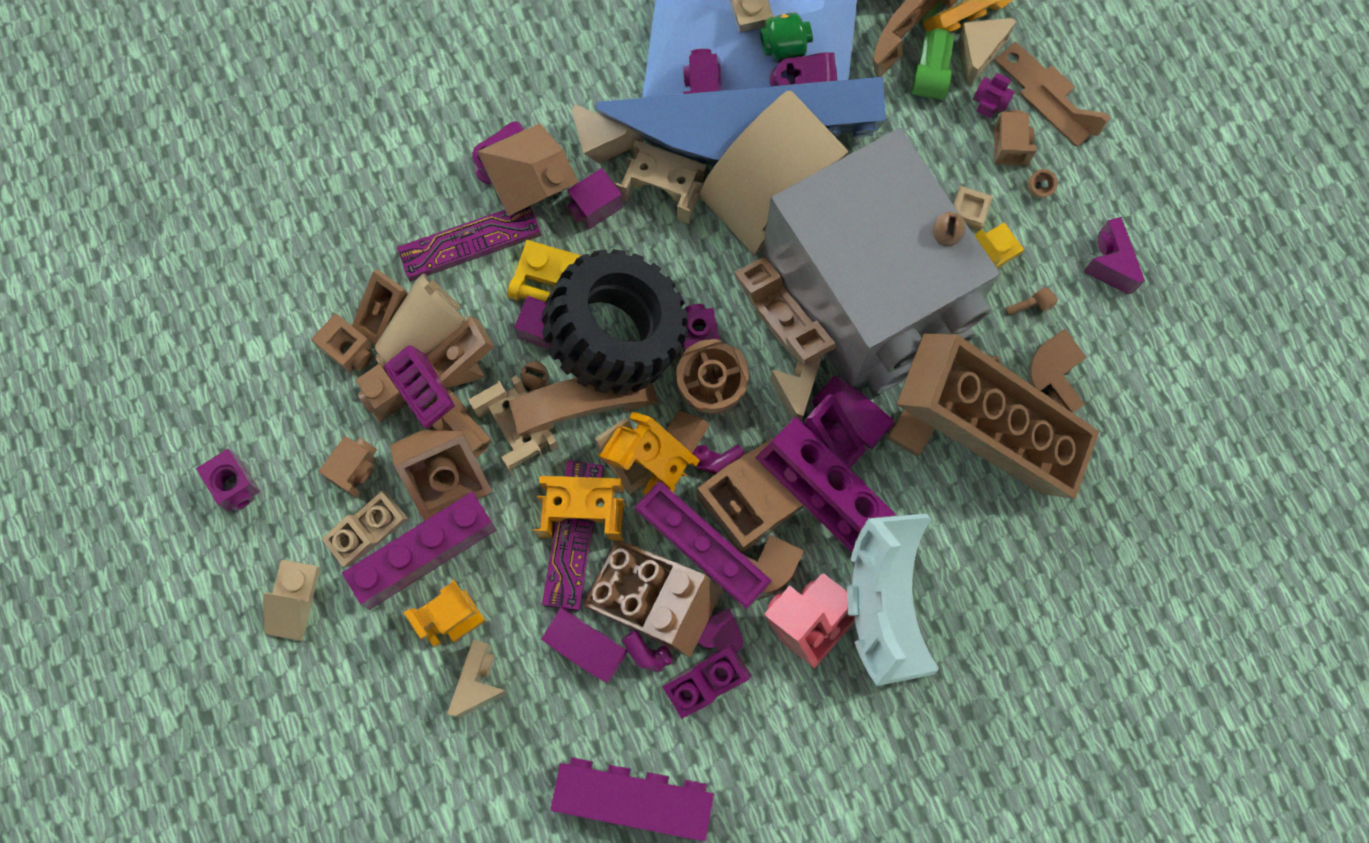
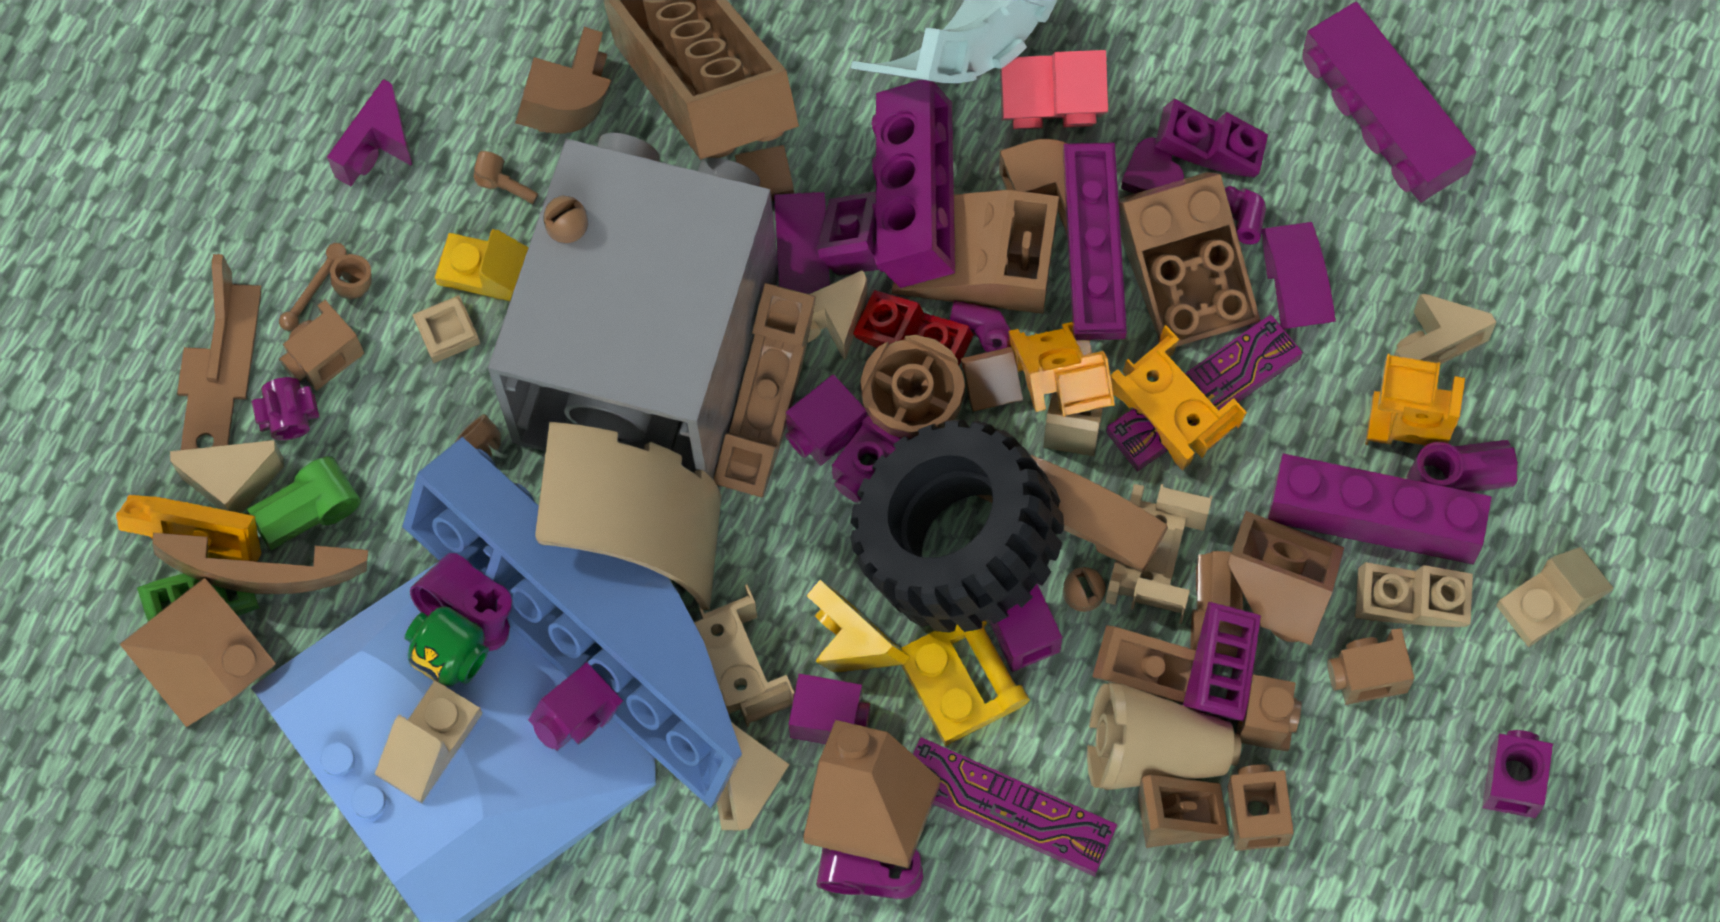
camera: 130 degrees left, 5 degrees down
(391, 624) = (1468, 466): none -> magenta piece
(610, 236) = (857, 640): none -> yellow slope
(743, 328) = (824, 421): none -> magenta brick
(749, 422) = (893, 318): none -> red slope
(1063, 192) = (289, 320): none -> medium nougat hinge

